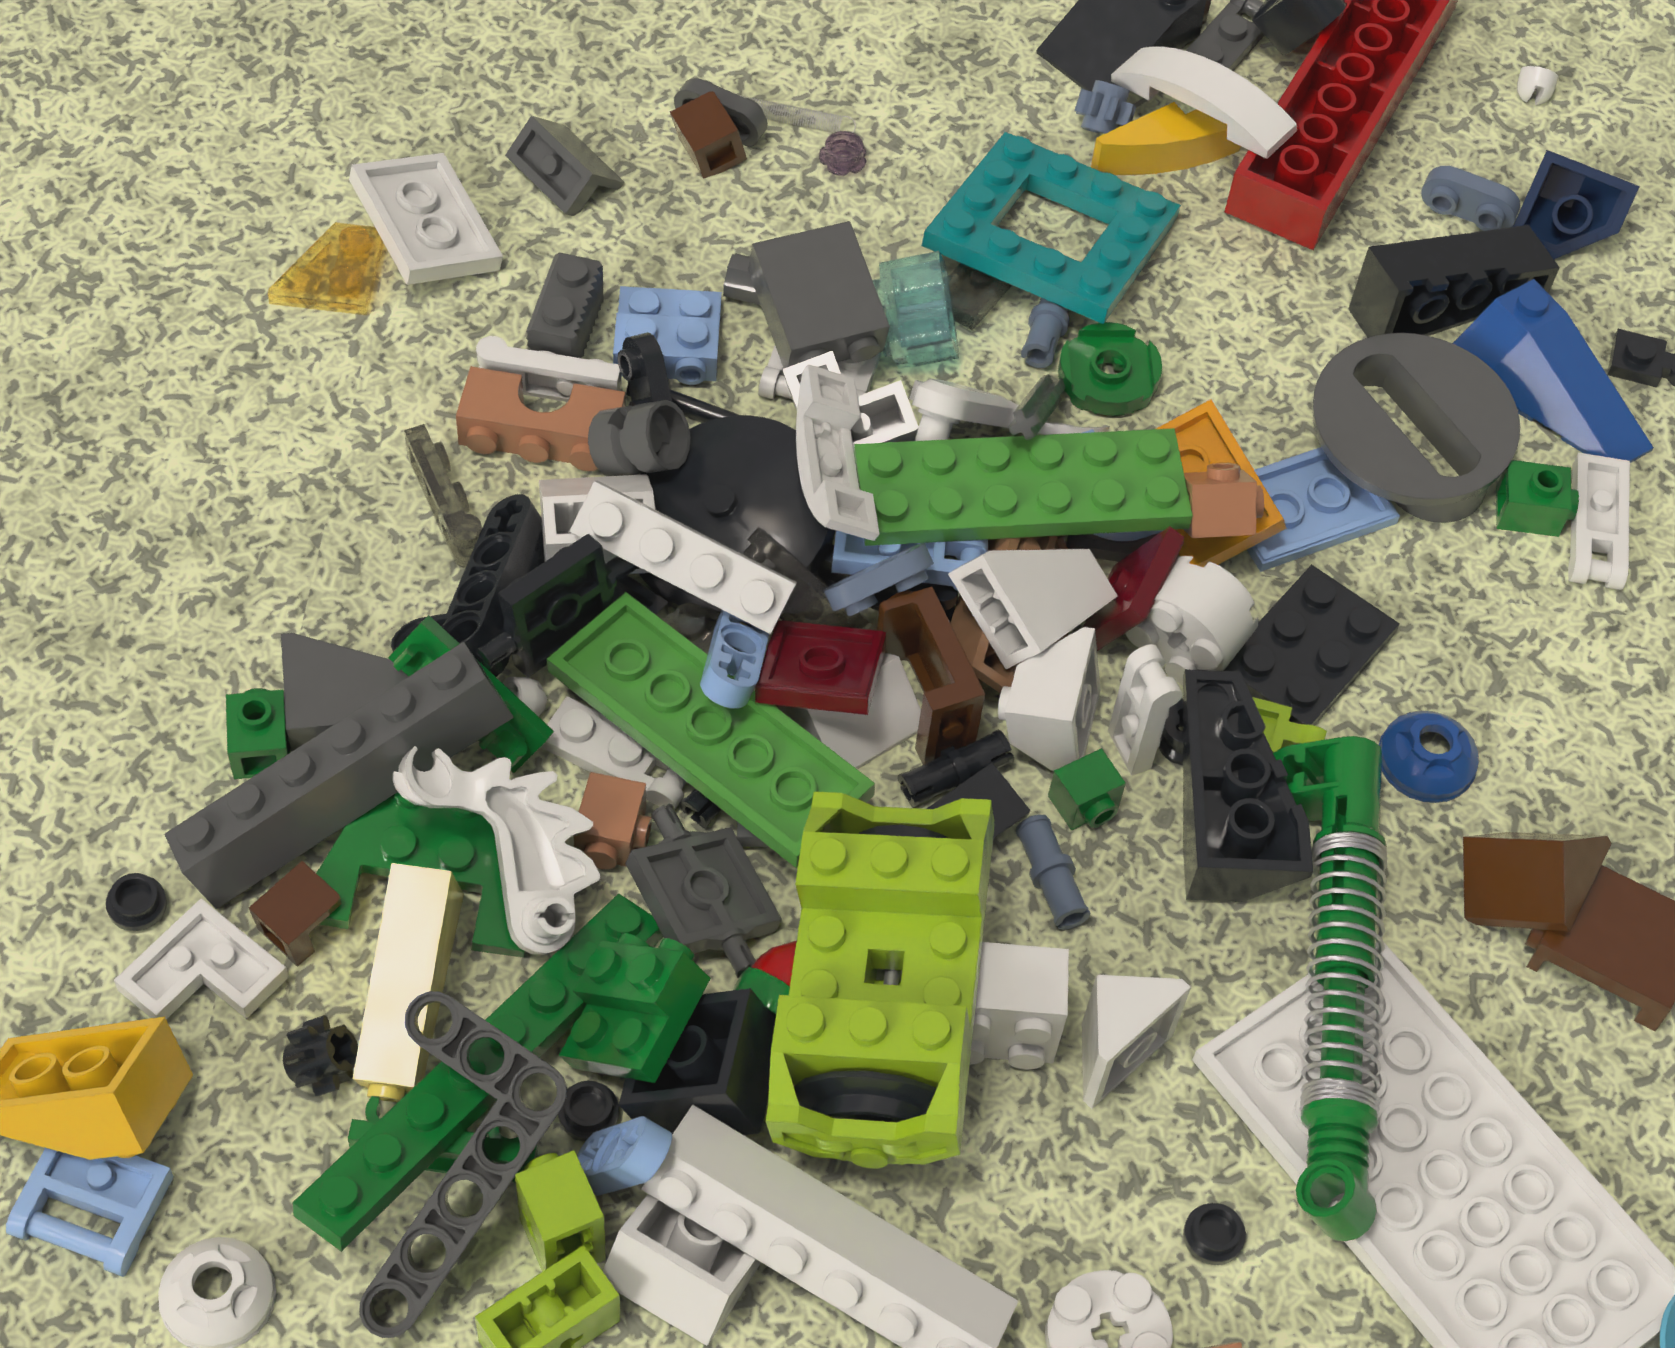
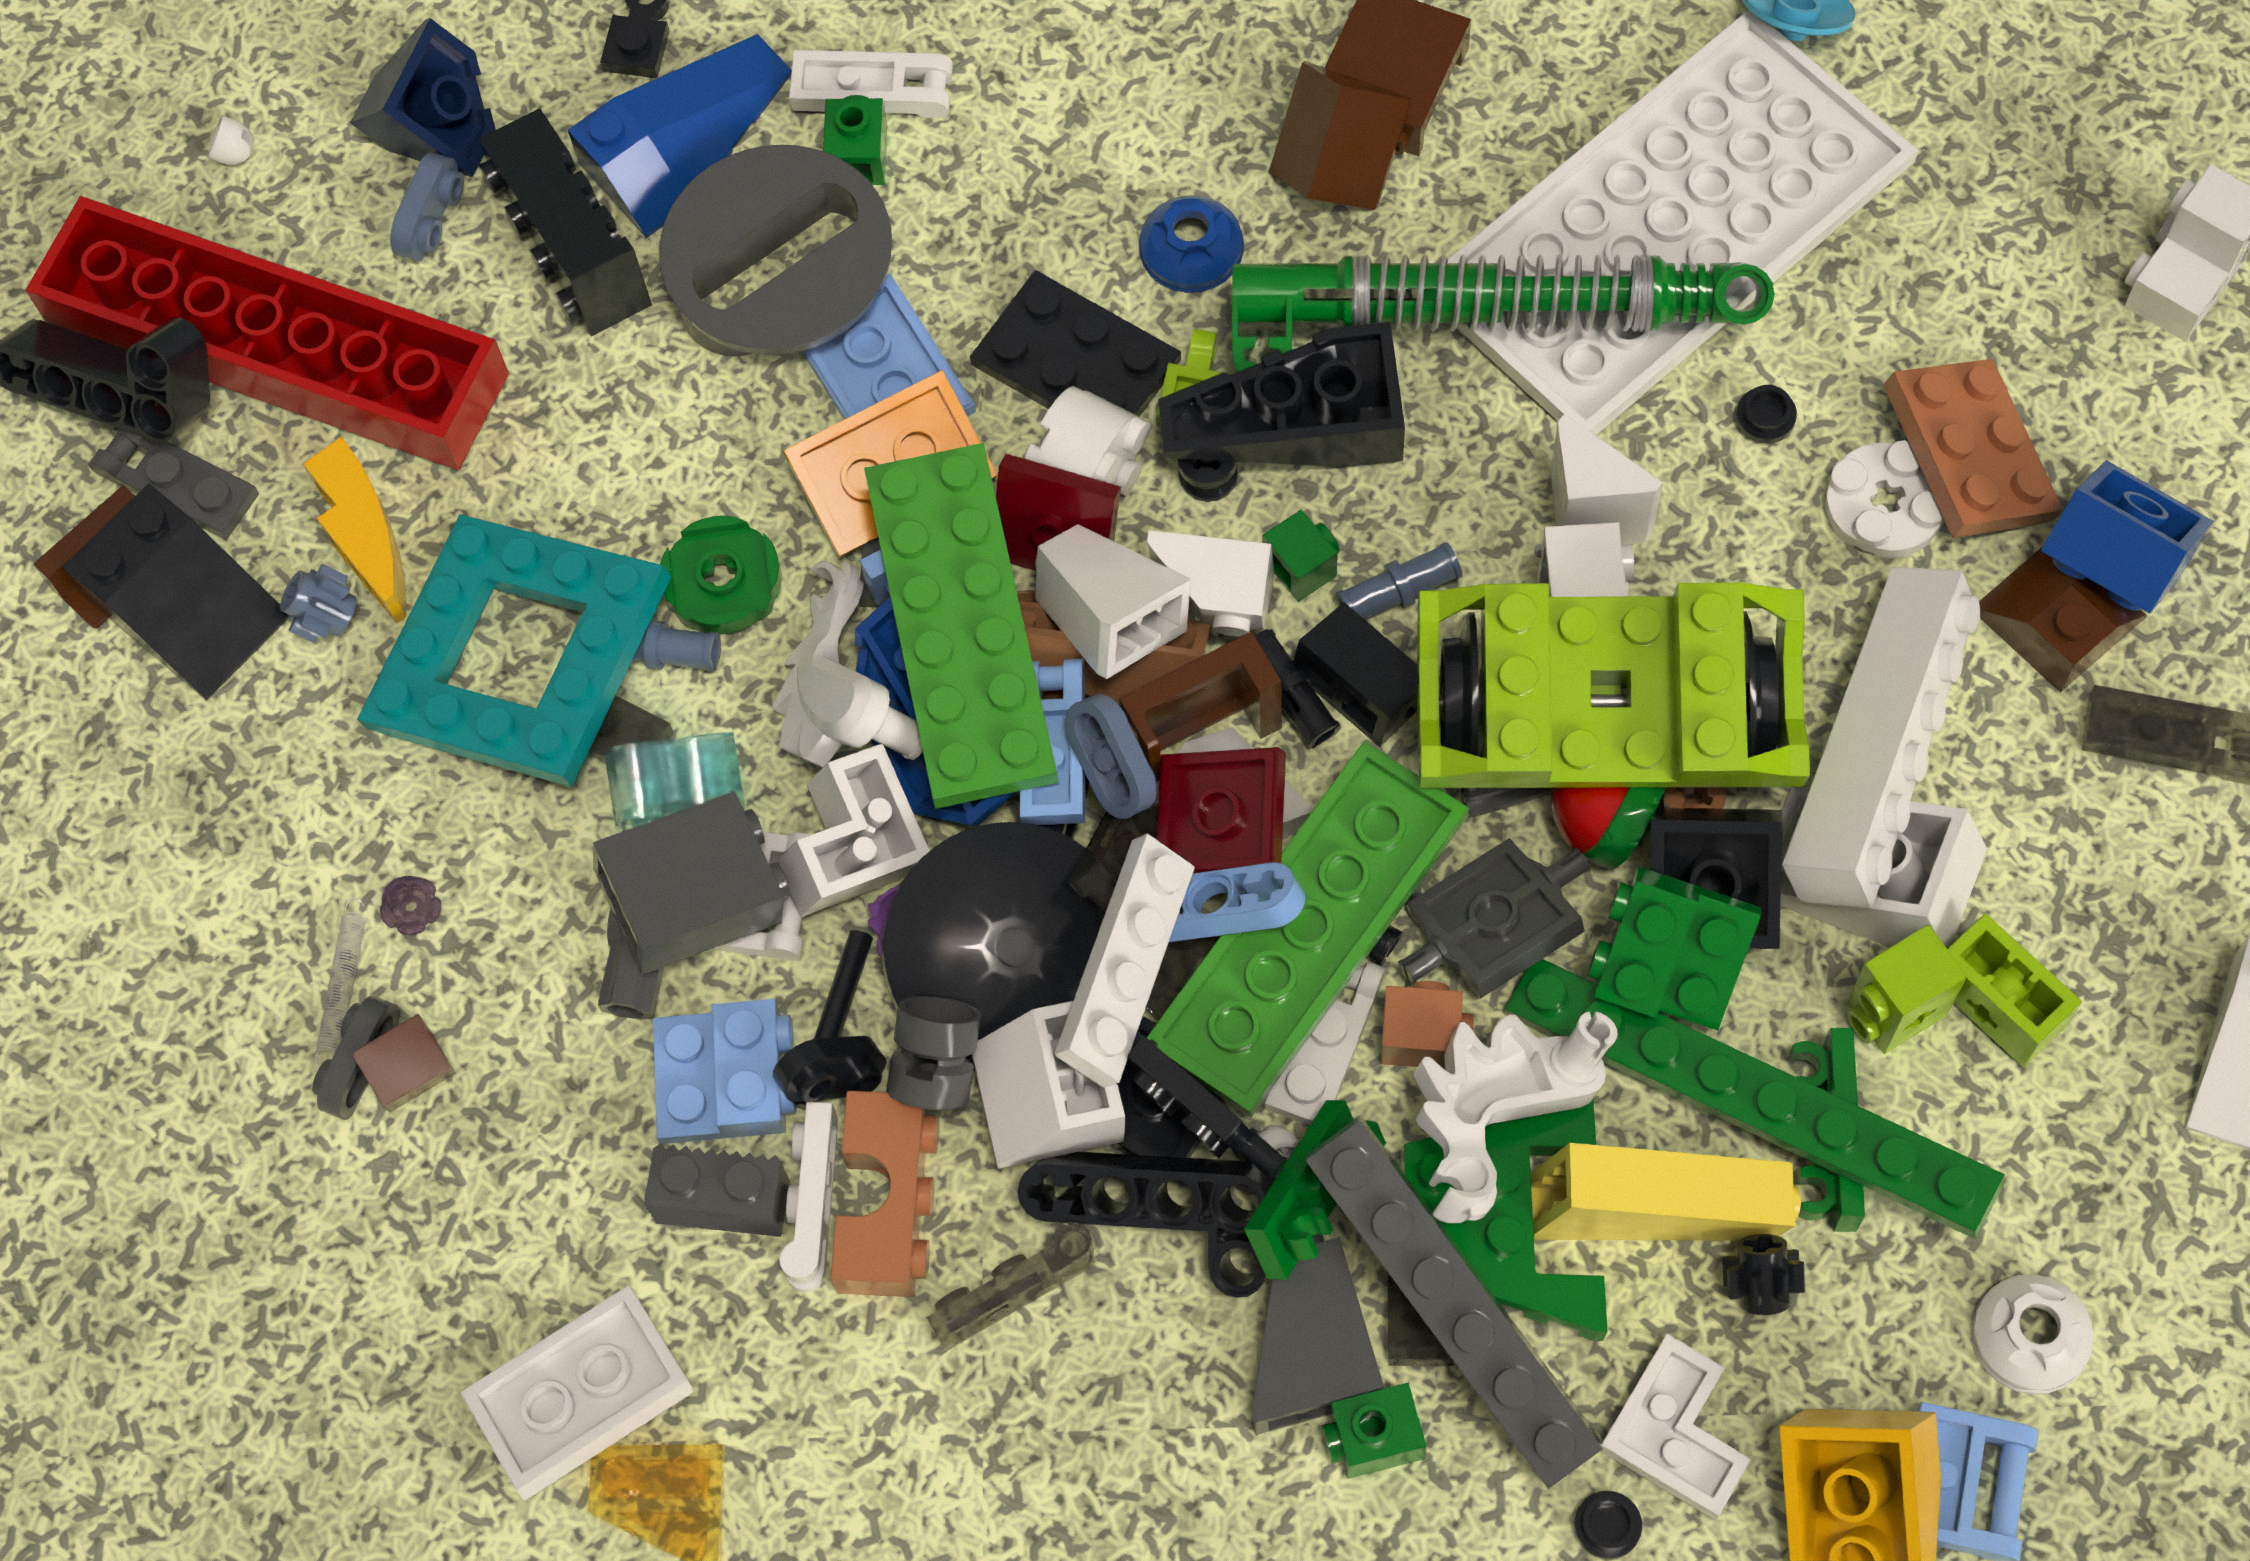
camera: 85 degrees left, 10 degrees up
(293, 910) = (1599, 1333): reddish brown panel -> none
(472, 1164) = (1836, 1032): dark grey beam -> none
(560, 164) = (461, 1241): dark grey panel -> none
(588, 1109) = (1759, 1002): black plate -> none
(624, 1154) = (1837, 912): light blue beam -> none
(826, 455) = (963, 827): white slope -> none
(1037, 407) = (828, 623): dark grey axle -> none
(1142, 708) = (1225, 486): white plate -> none
(1223, 501) = (948, 417): nougat brick -> none
(1250, 114) = (317, 474): white slope -> none

